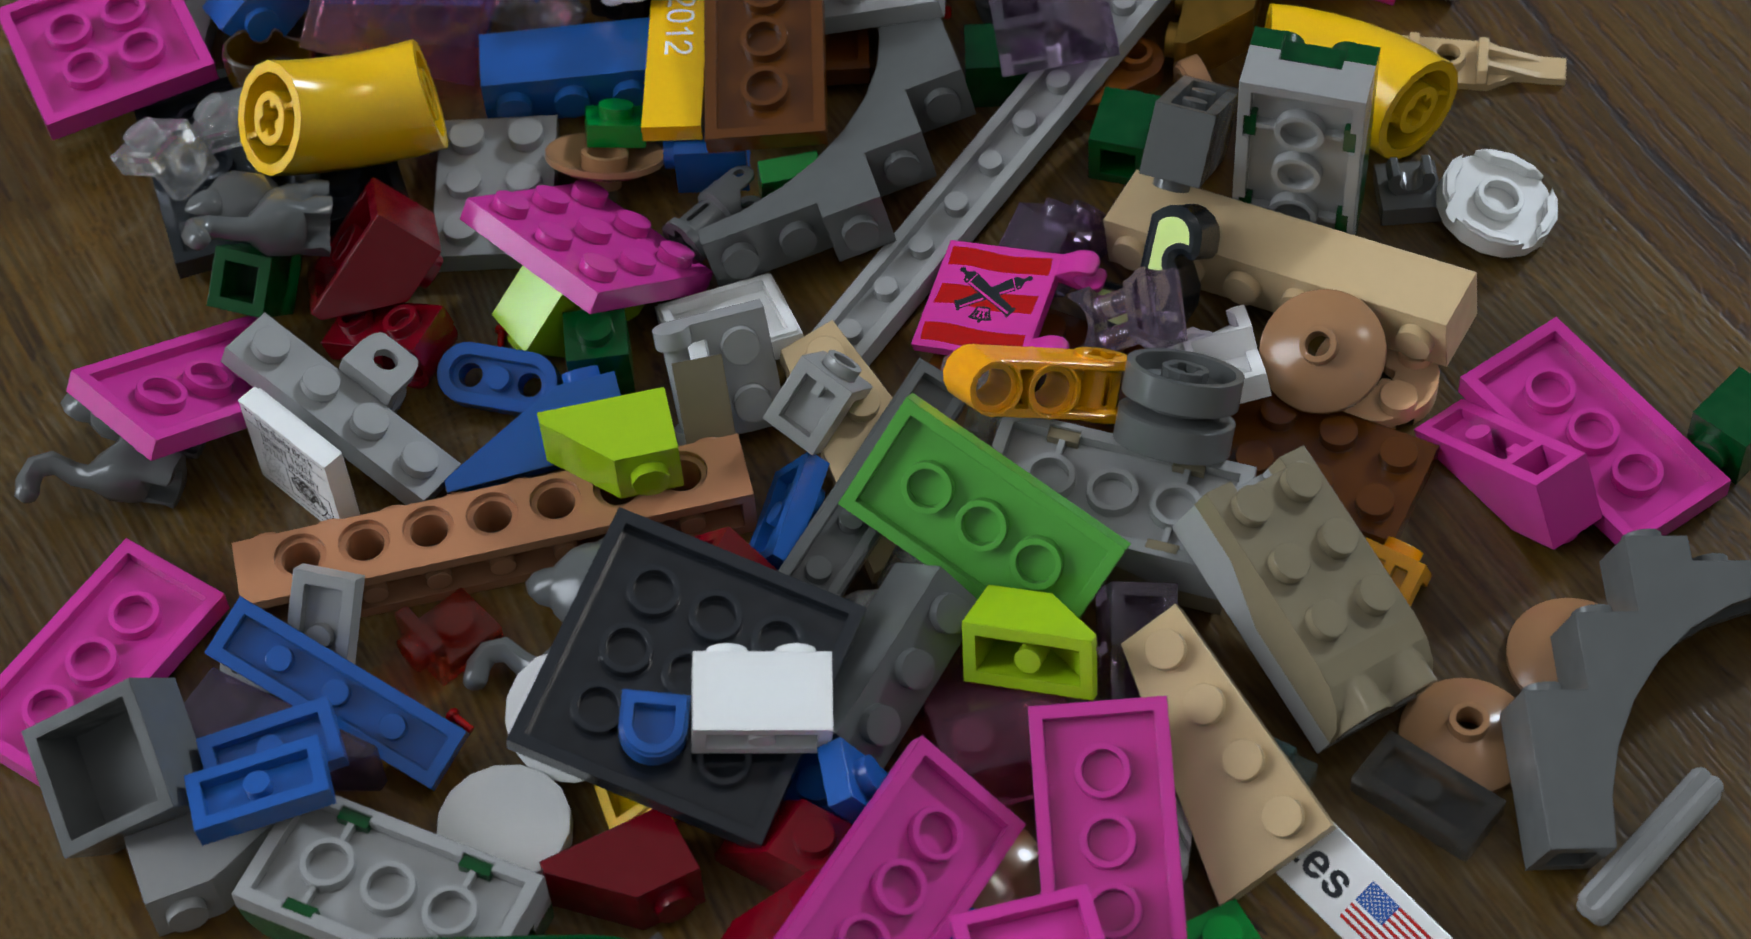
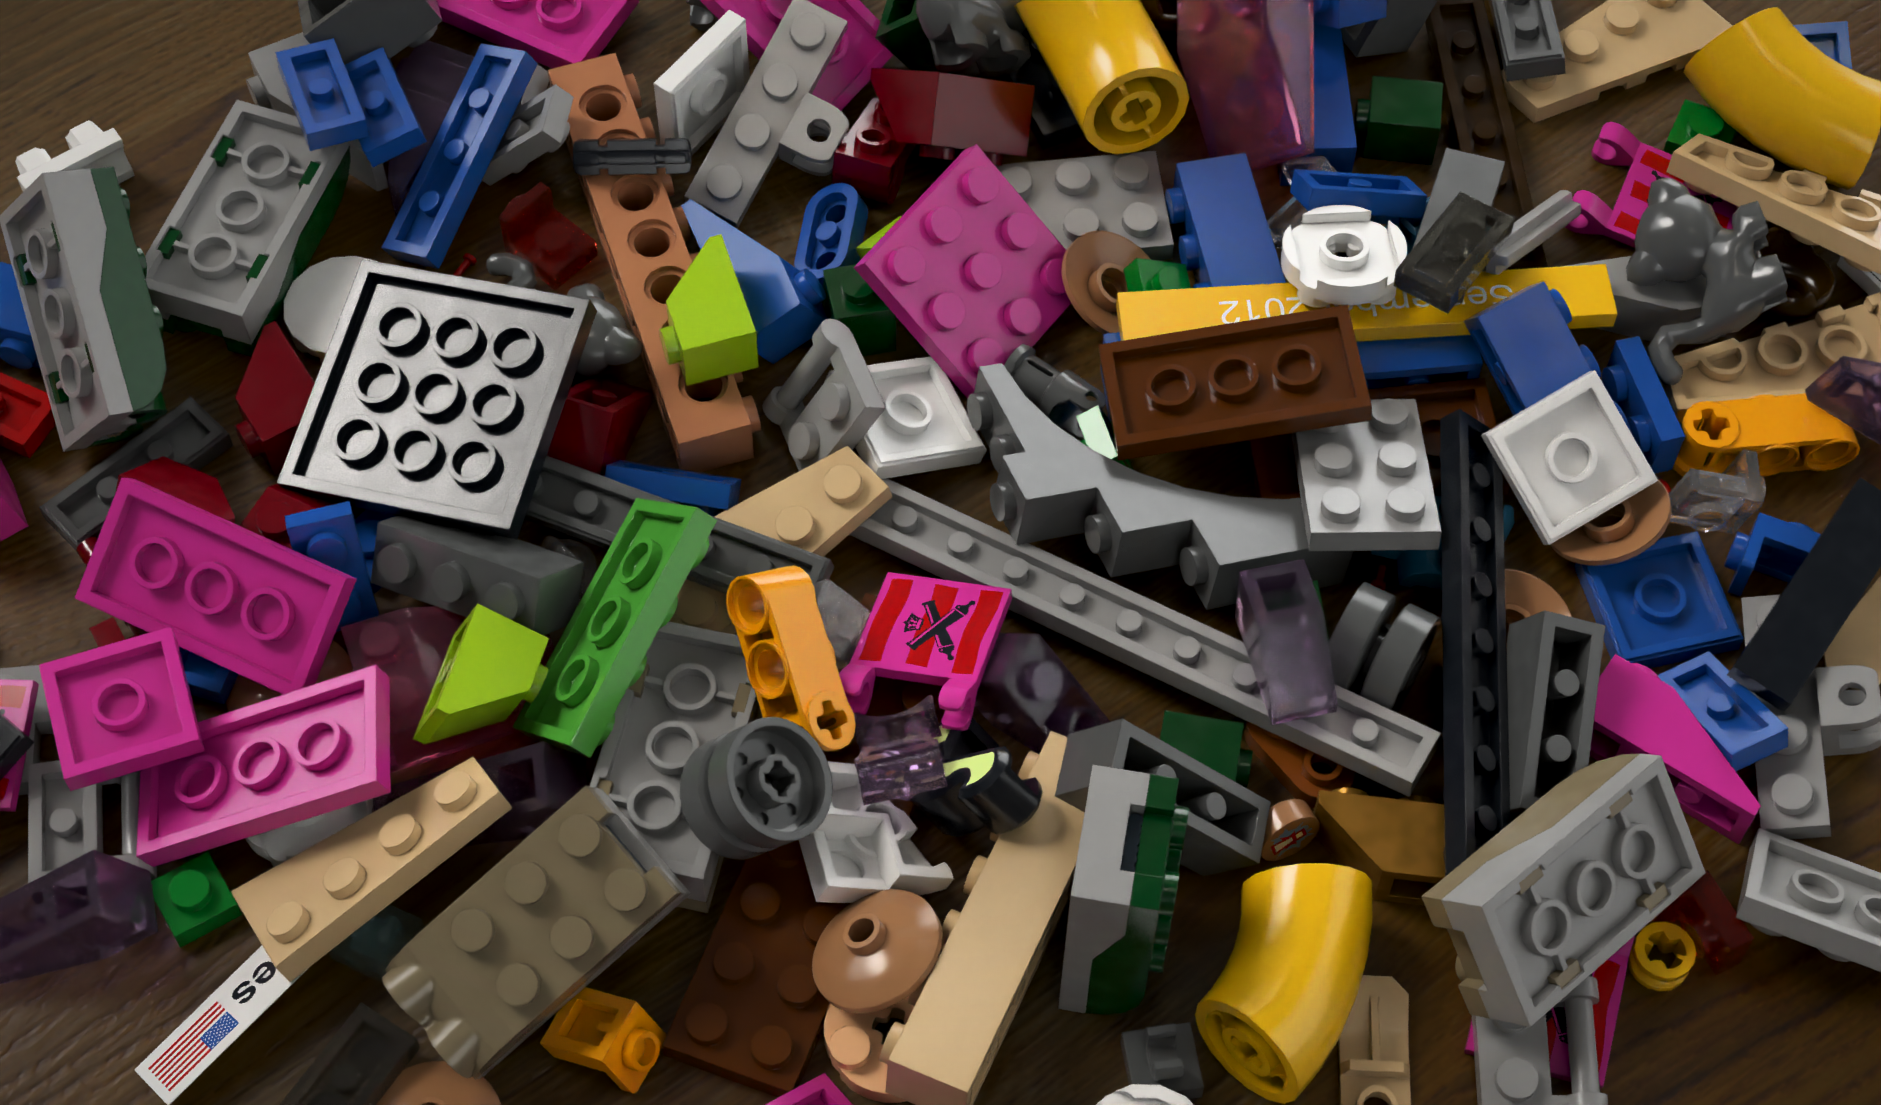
camera: 80 degrees right, 5 degrees up
(389, 518) = (632, 156): none -> black axle
(653, 725) = (374, 367): blue tile -> none
(703, 398) = (784, 398): dark tan sticker -> none
(761, 699) = (388, 444): white brick -> none
(817, 398) = (781, 476): light grey bracket -> none

